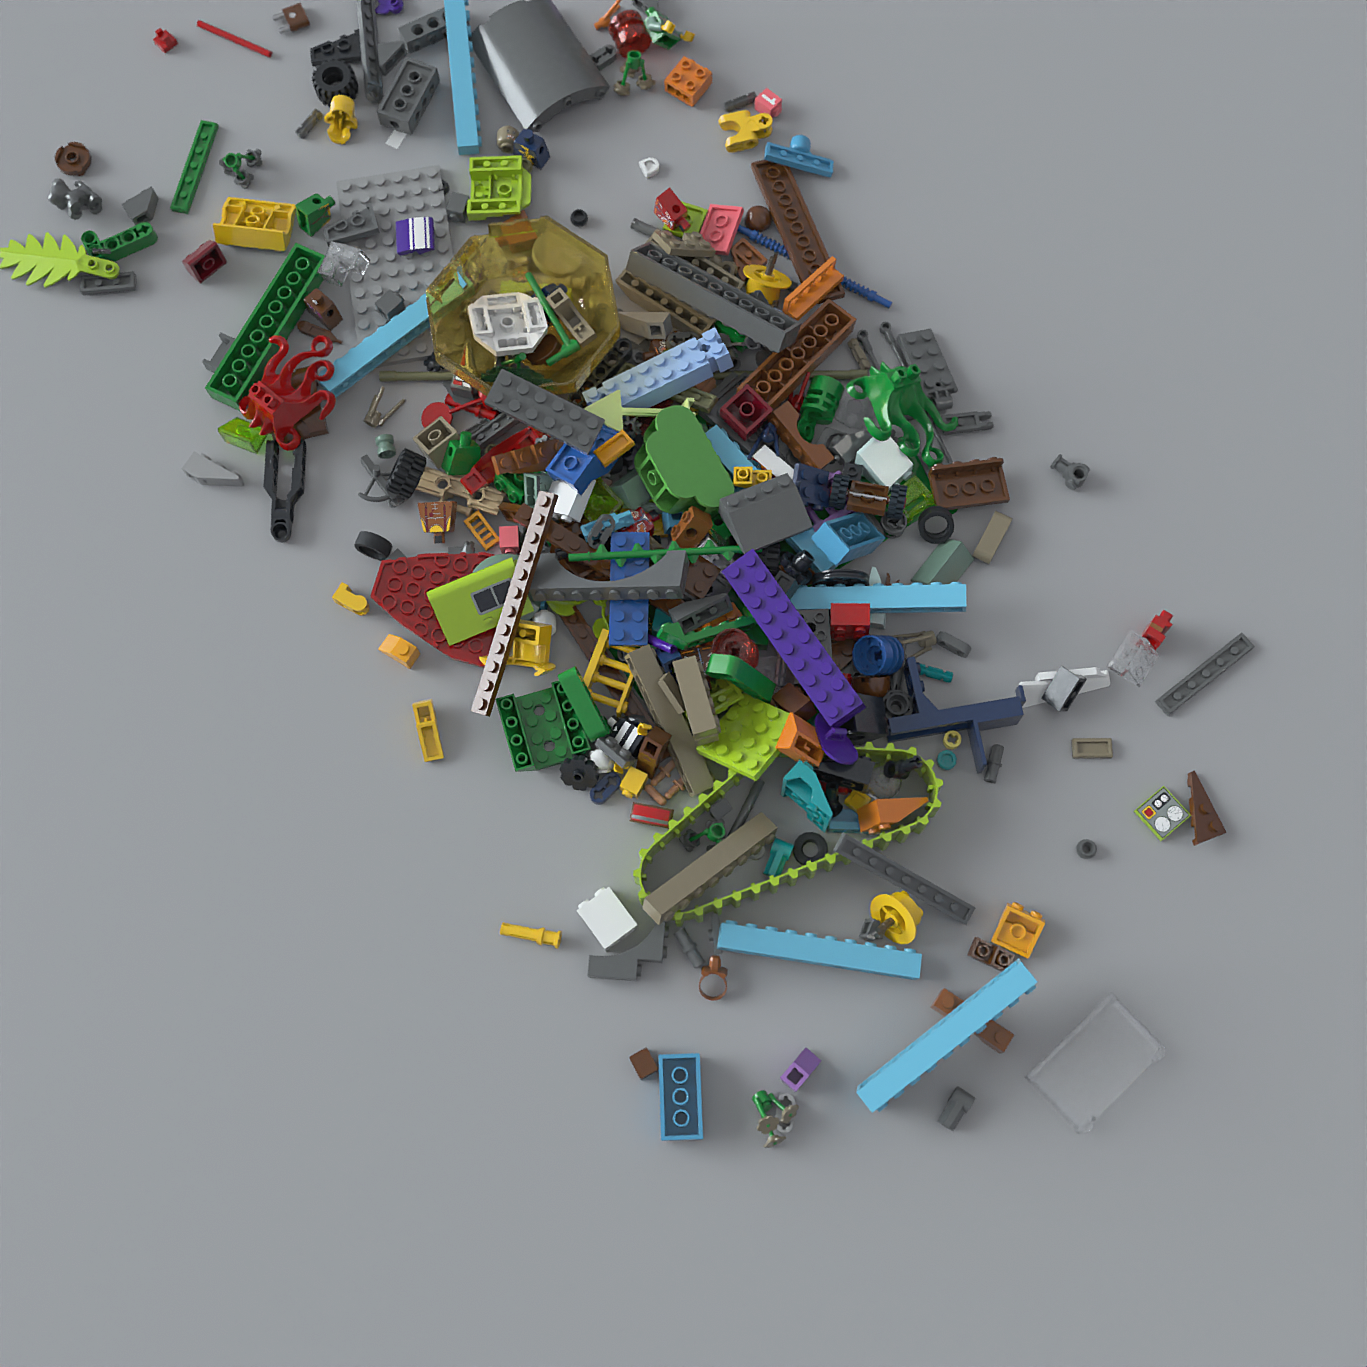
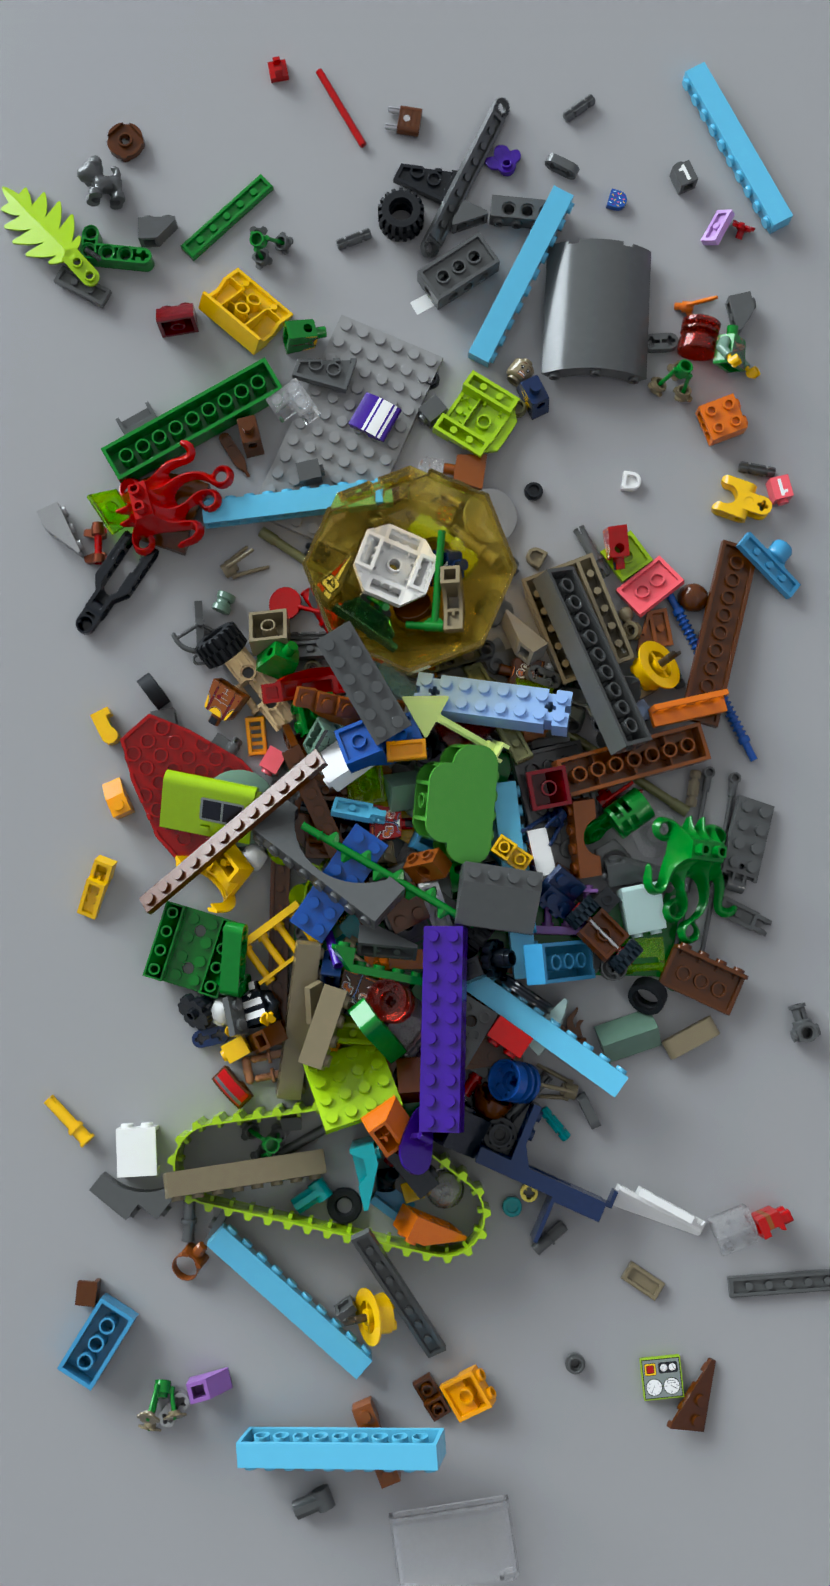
camera: 30 degrees right, 10 degrees up
(245, 458) = (98, 533): none -> copper piece
(341, 119) = (384, 255): yellow head -> none
(596, 529) = (345, 814): dark grey beam -> none
(616, 264) = (536, 557): none -> dark tan tile
(635, 426) = (439, 734): dark grey gear -> none
(692, 244) = (613, 595): dark tan plate -> none
(901, 768) = (462, 1197): black pin -> none
(1063, 689) = (652, 1217): panel -> none

